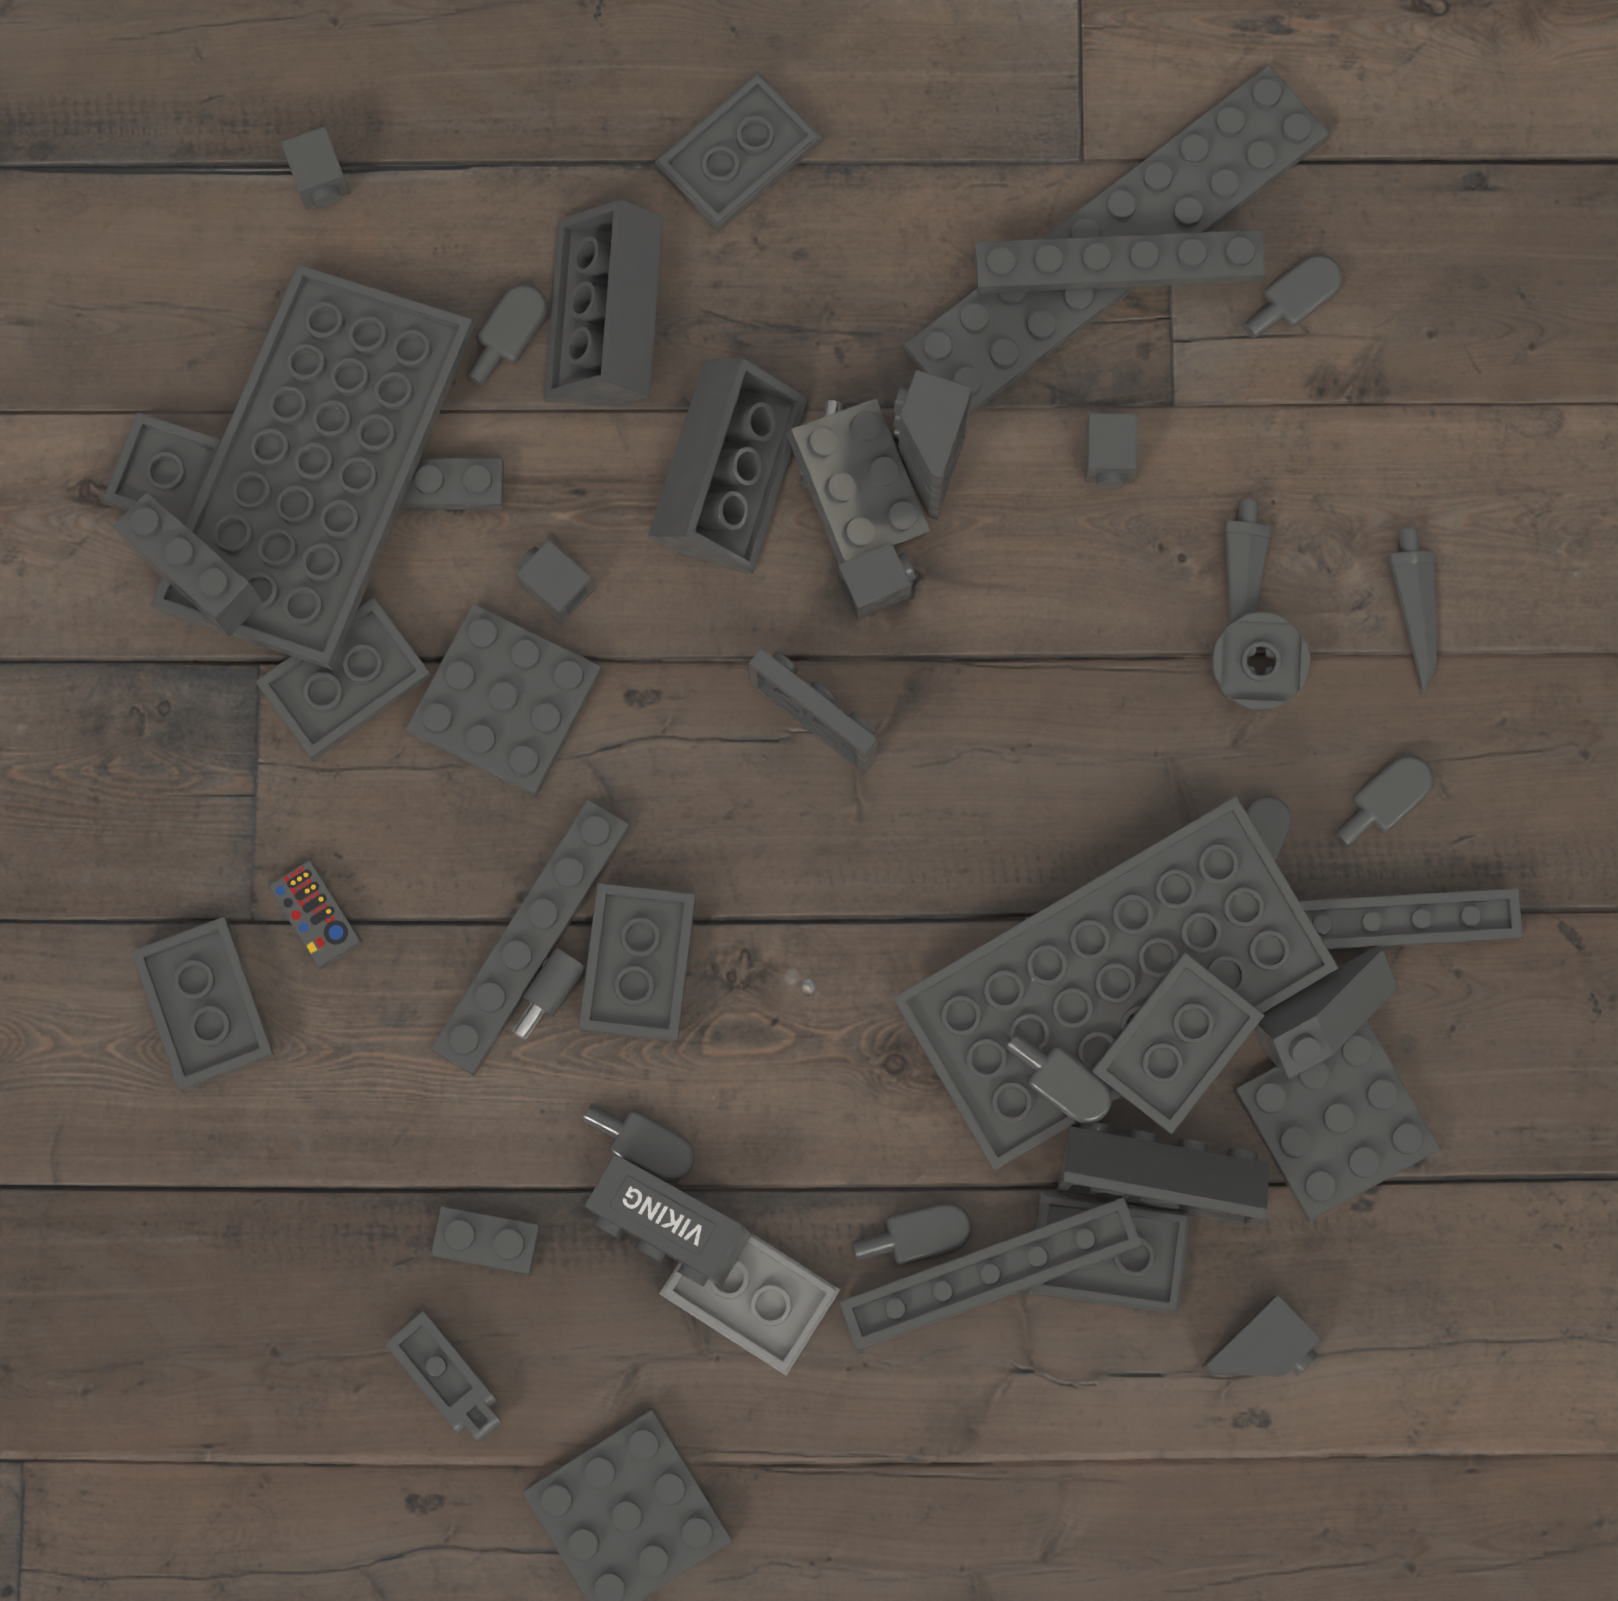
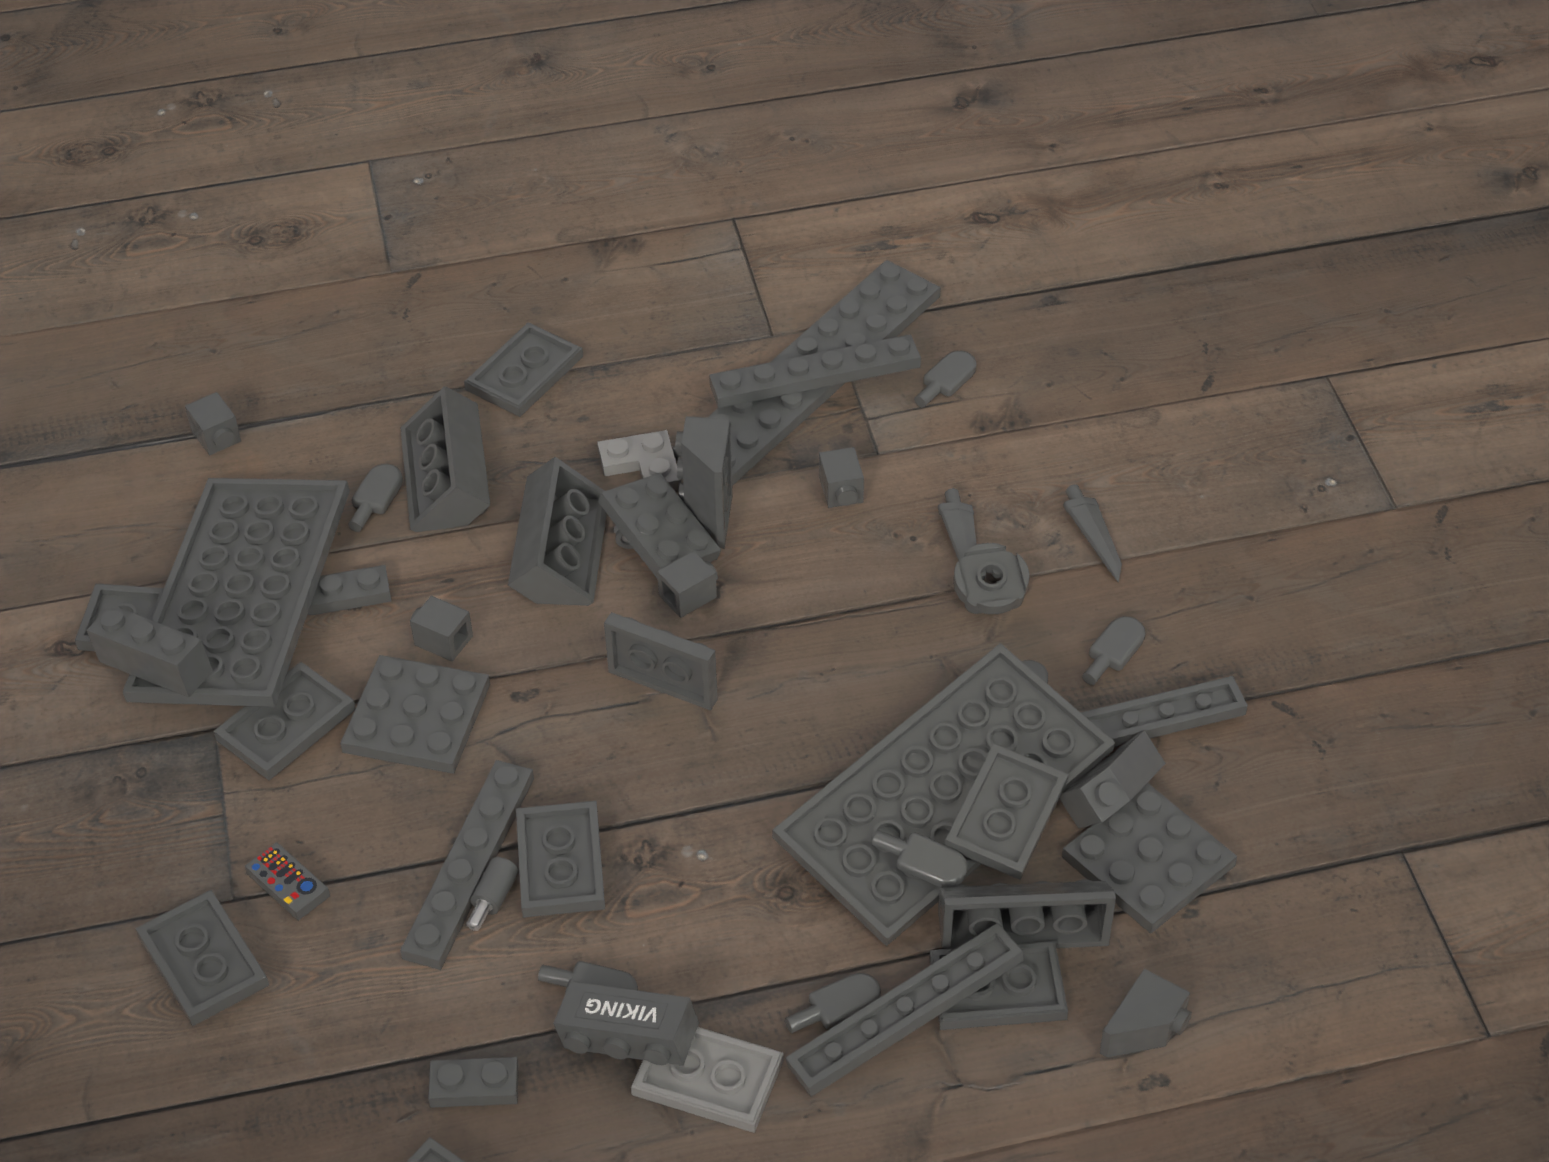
camera: 15 degrees left, 30 degrees down
(868, 339) = (644, 453): none -> light grey plate

